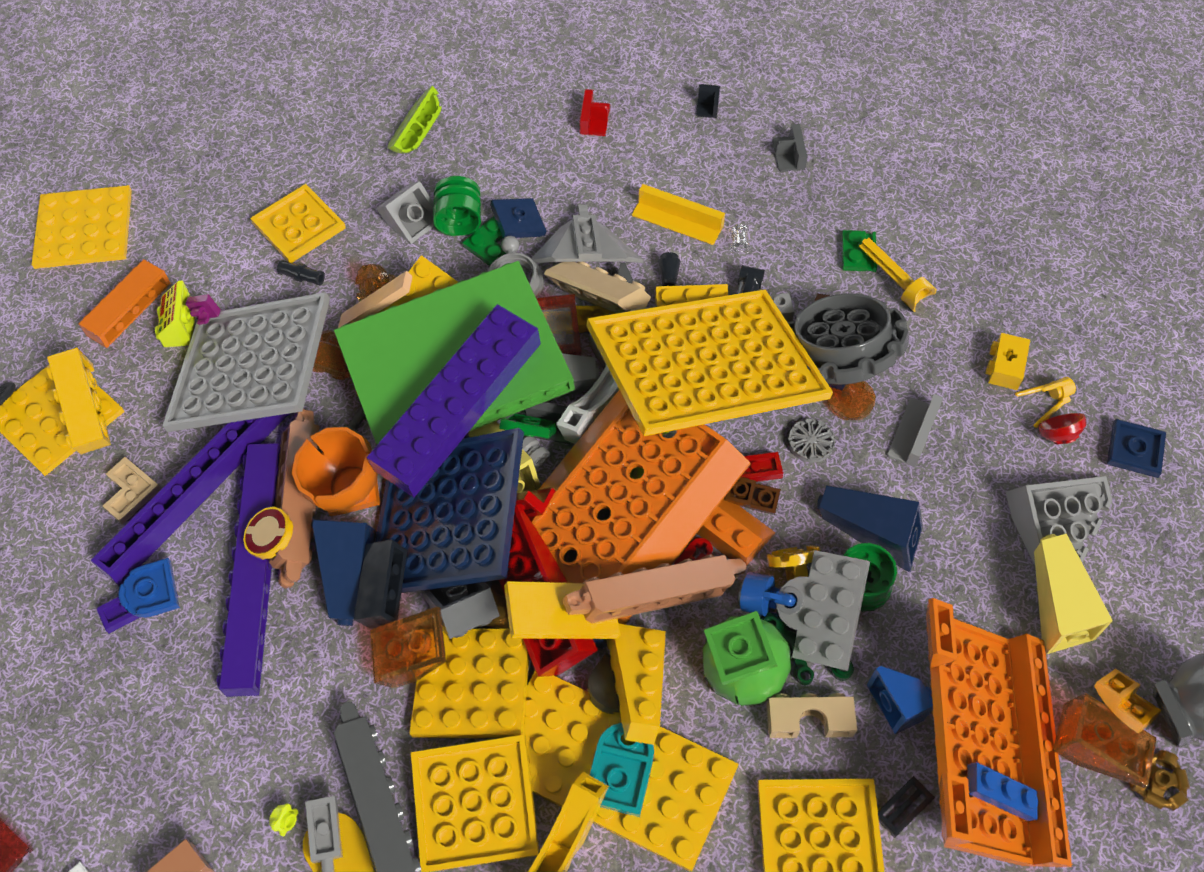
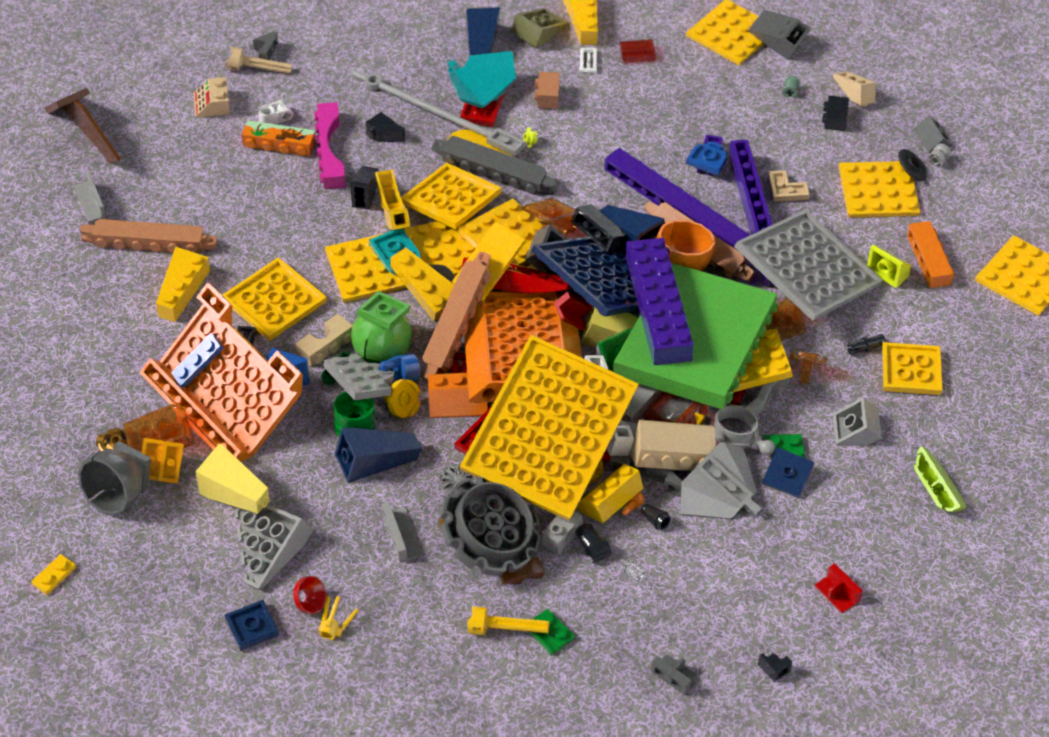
camera: 135 degrees right, 10 degrees down
(78, 400) = (864, 187): yellow wedge -> none
(203, 308) = (879, 273): magenta tile -> none
(268, 532) = (681, 204): tile -> none
(378, 300) = (787, 341): light nougat tile -> none
(457, 206) = (828, 440): green wheel -> none
(679, 214) = (693, 560): yellow panel -> none
(754, 496) = (464, 418): reddish brown slope -> none
(1008, 361) = (378, 619): yellow brick -> none

